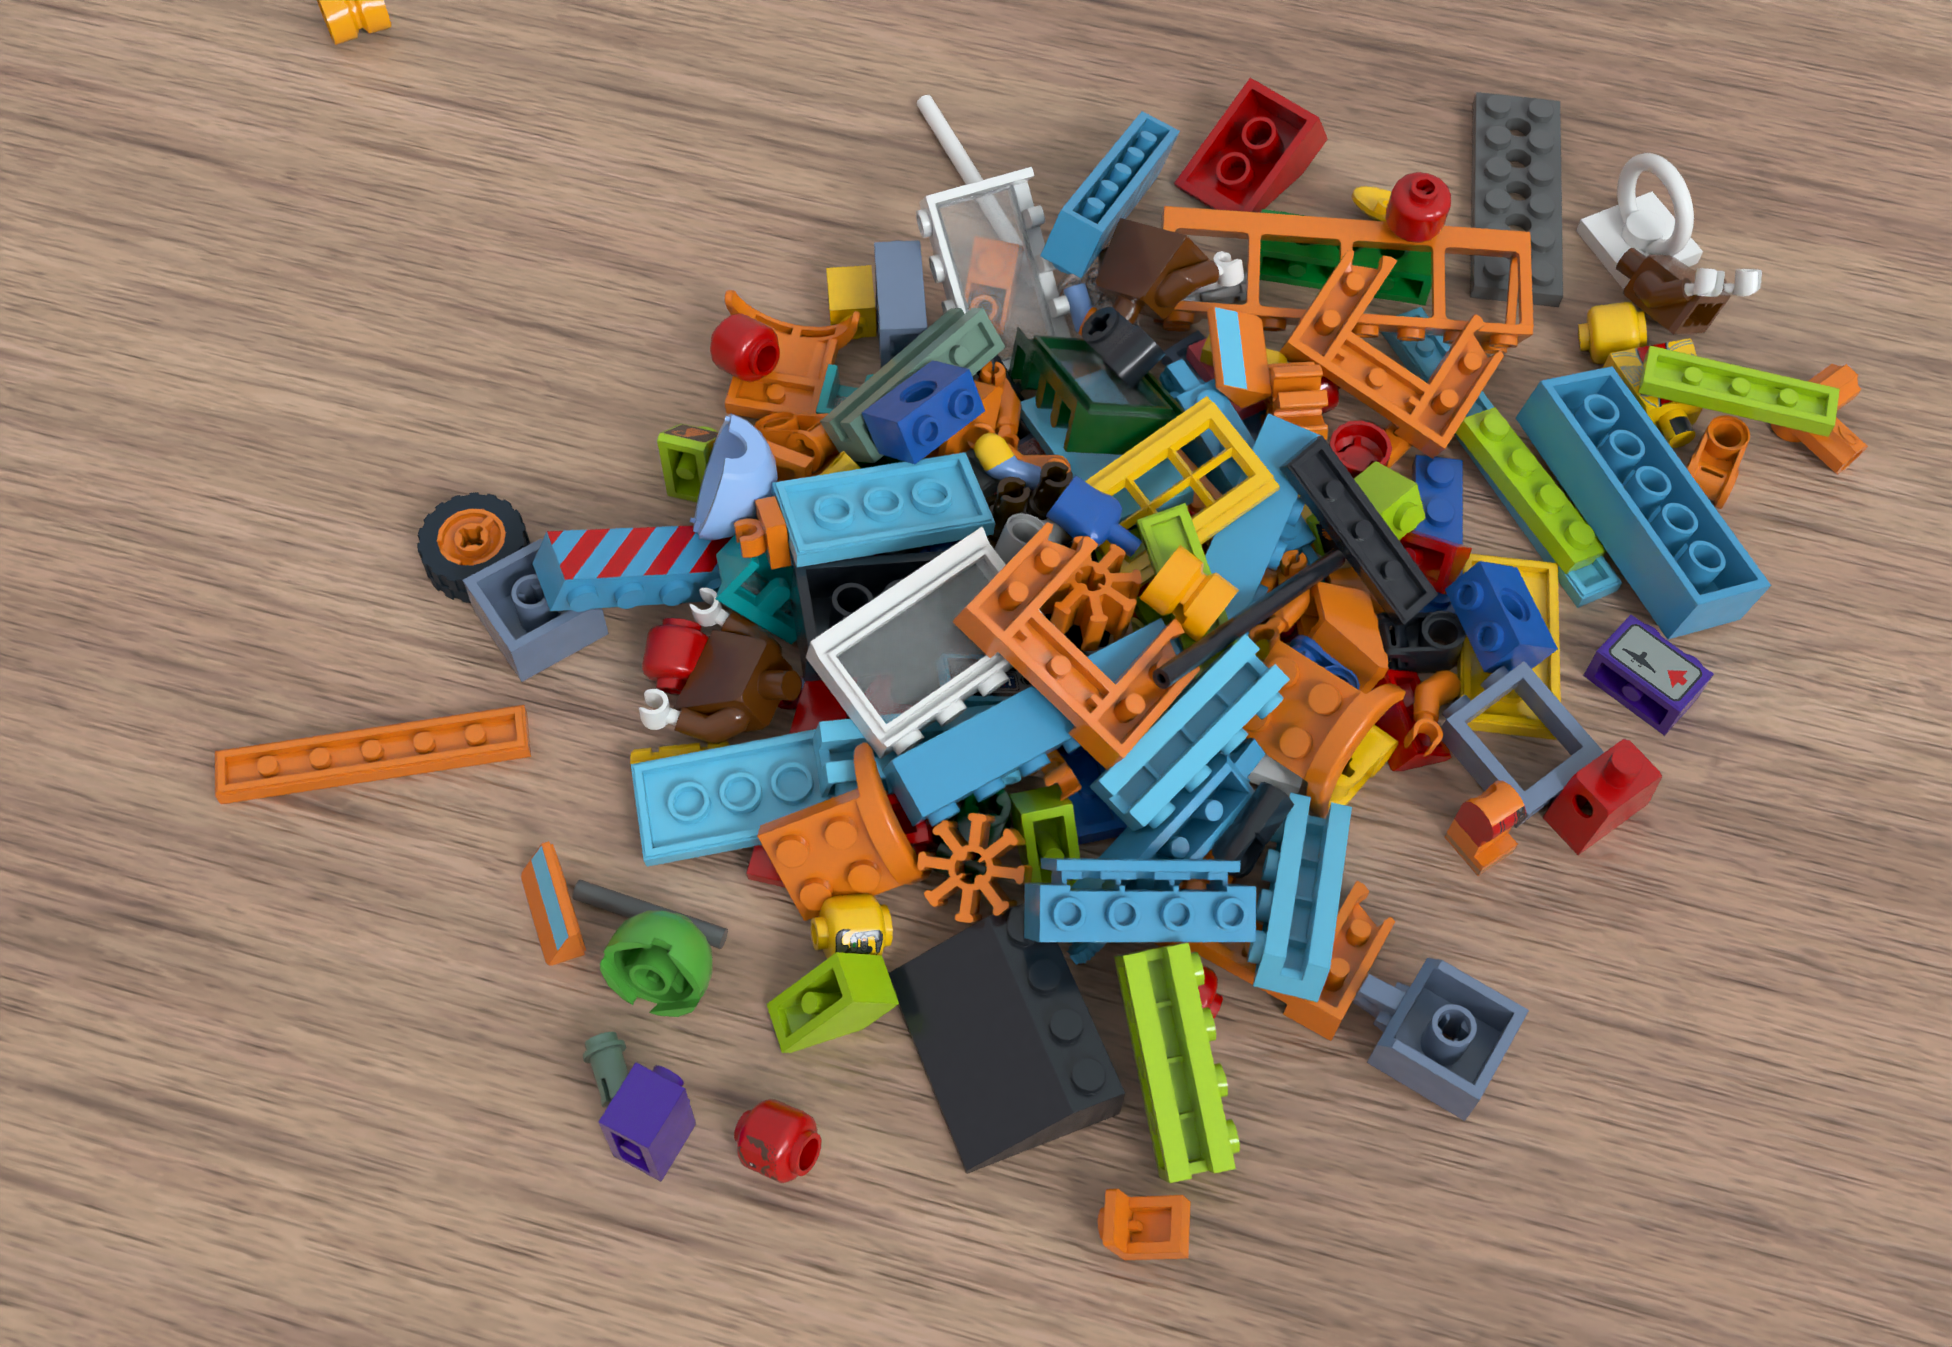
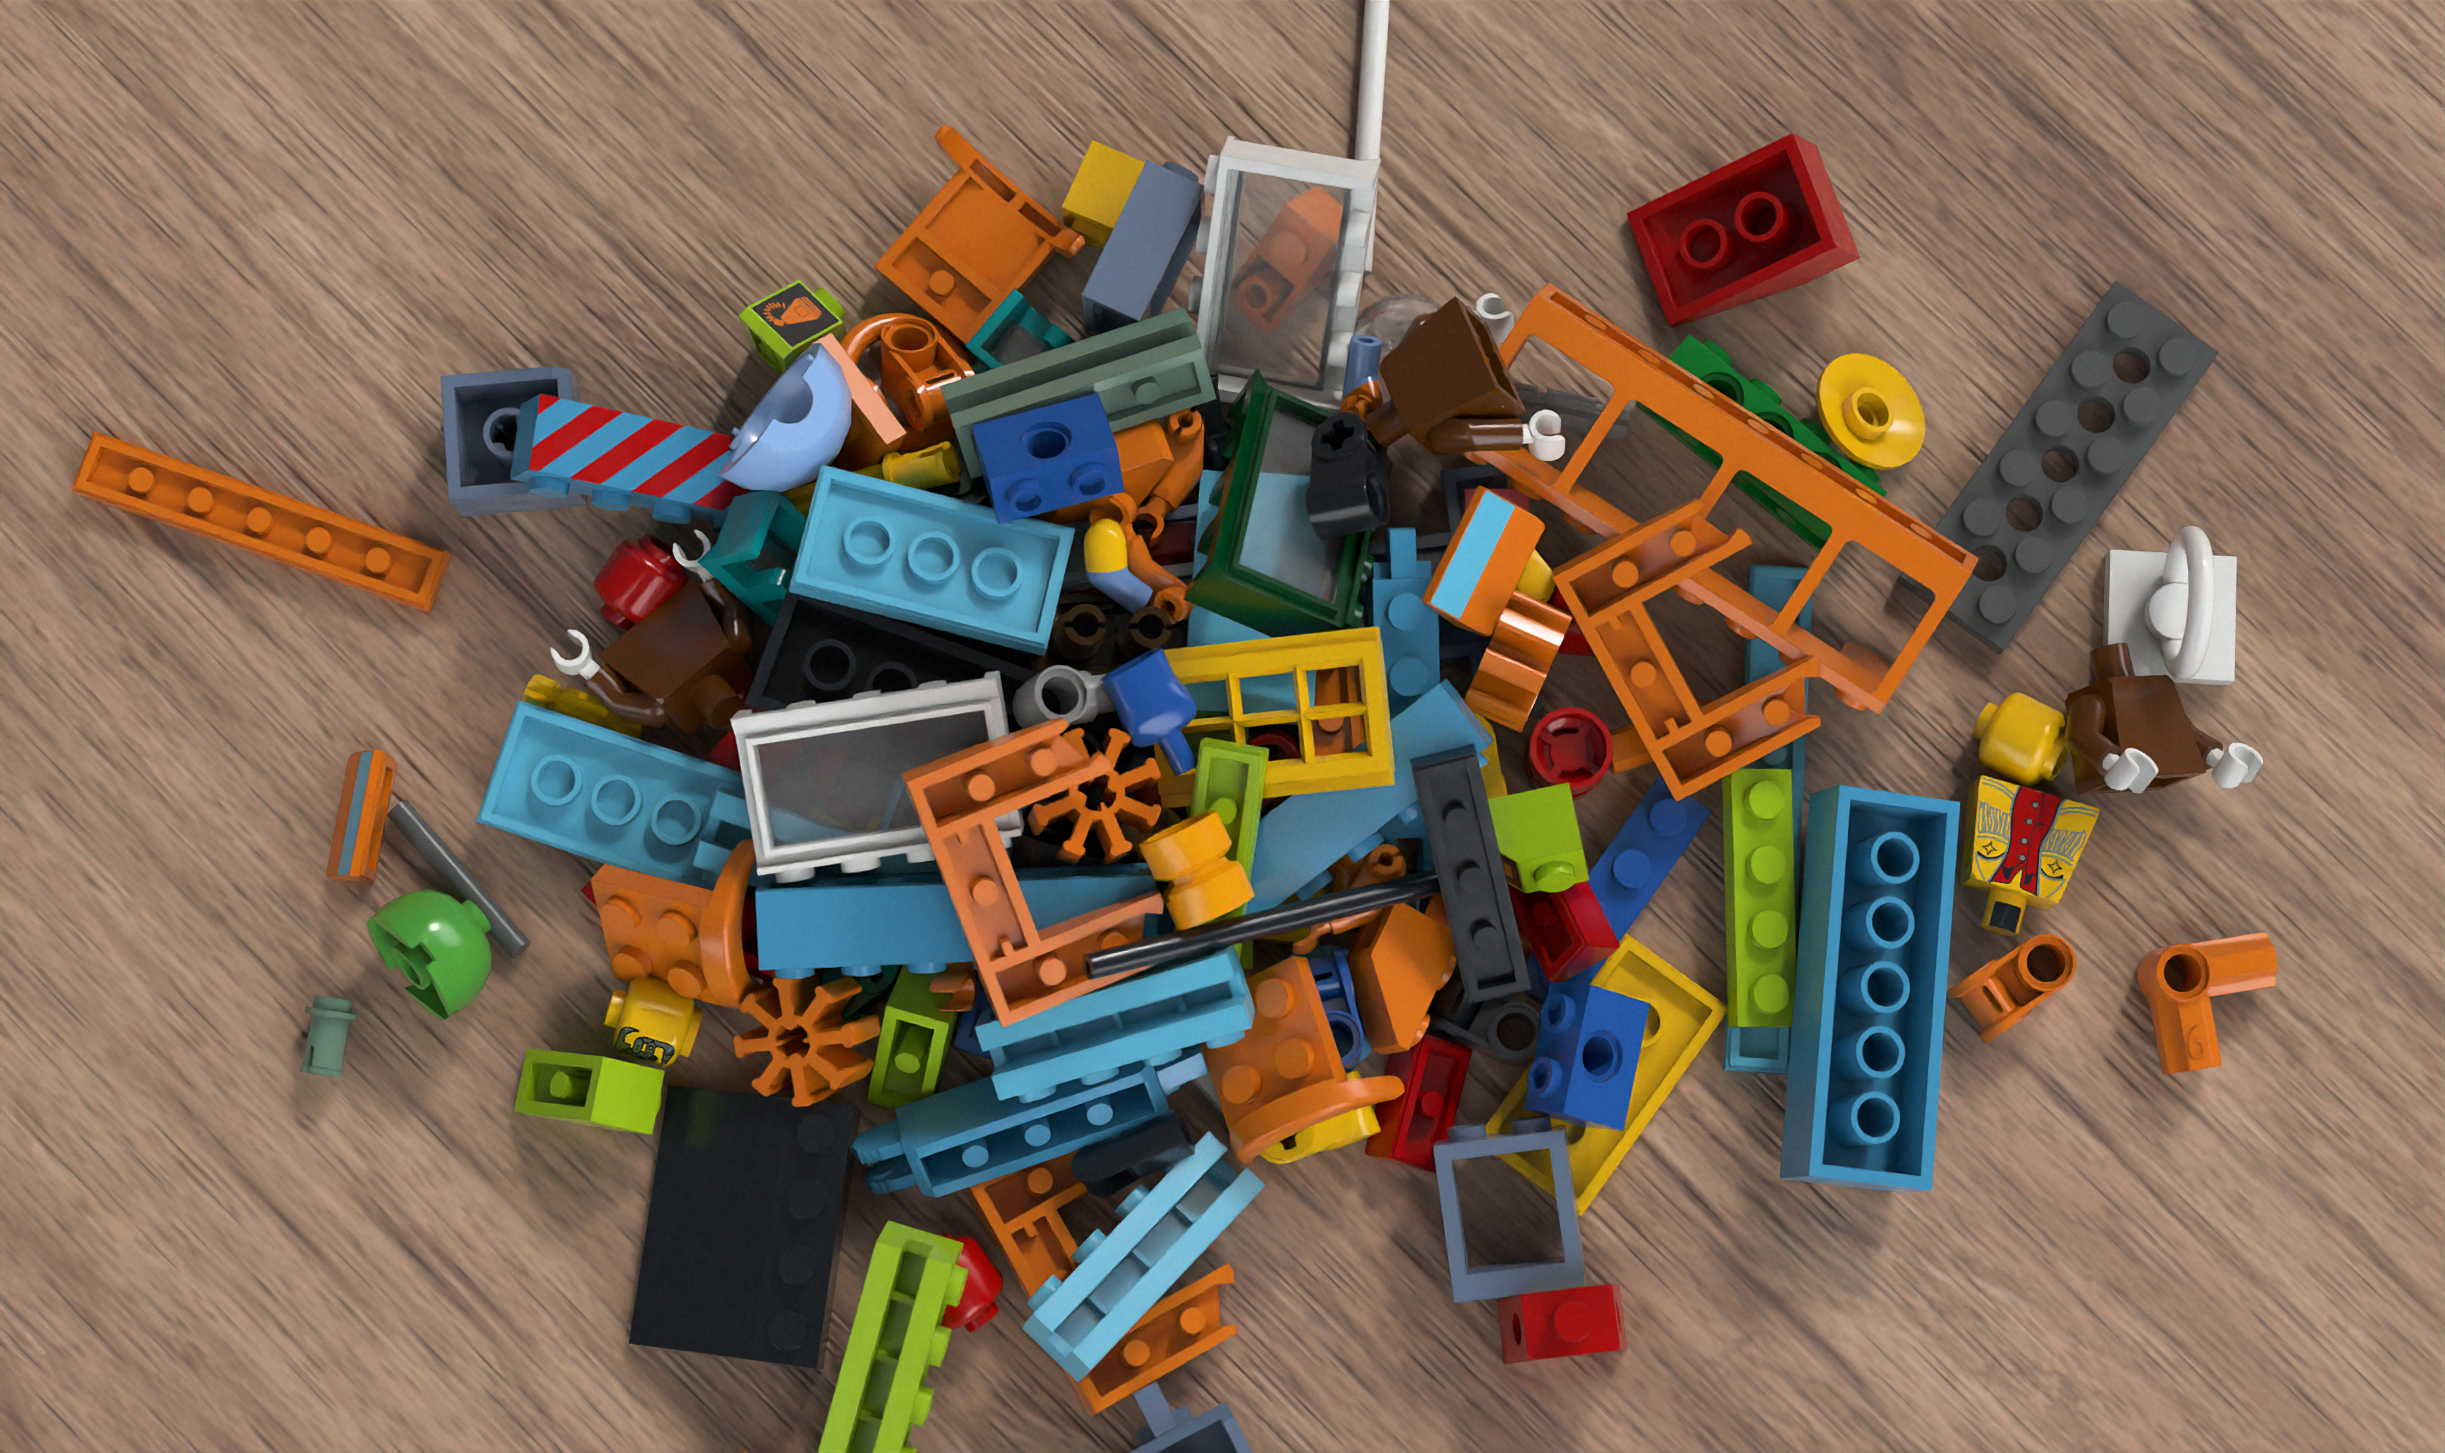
camera: 30 degrees right, 20 degrees up
(451, 536) = (485, 276): black wheel -> none
(648, 1120) = (328, 1125): dark purple brick -> none
(744, 348) = (926, 214): red head -> none
(765, 534) = (785, 523): orange tile -> none
(777, 1141) = (451, 1210): red head -> none
(1109, 194) = (1489, 231): dark azure brick -> none
(1139, 915) = (907, 1195): dark azure brick -> none
(1418, 207) = (1822, 501): red head -> none
(1428, 699) = (1451, 1096): orange arm -> none
(1484, 824) = (1403, 1288): orange leg -> none
(1648, 674) = (1730, 1205): brick -> none
(1739, 391) = (2087, 922): lime plate -> none

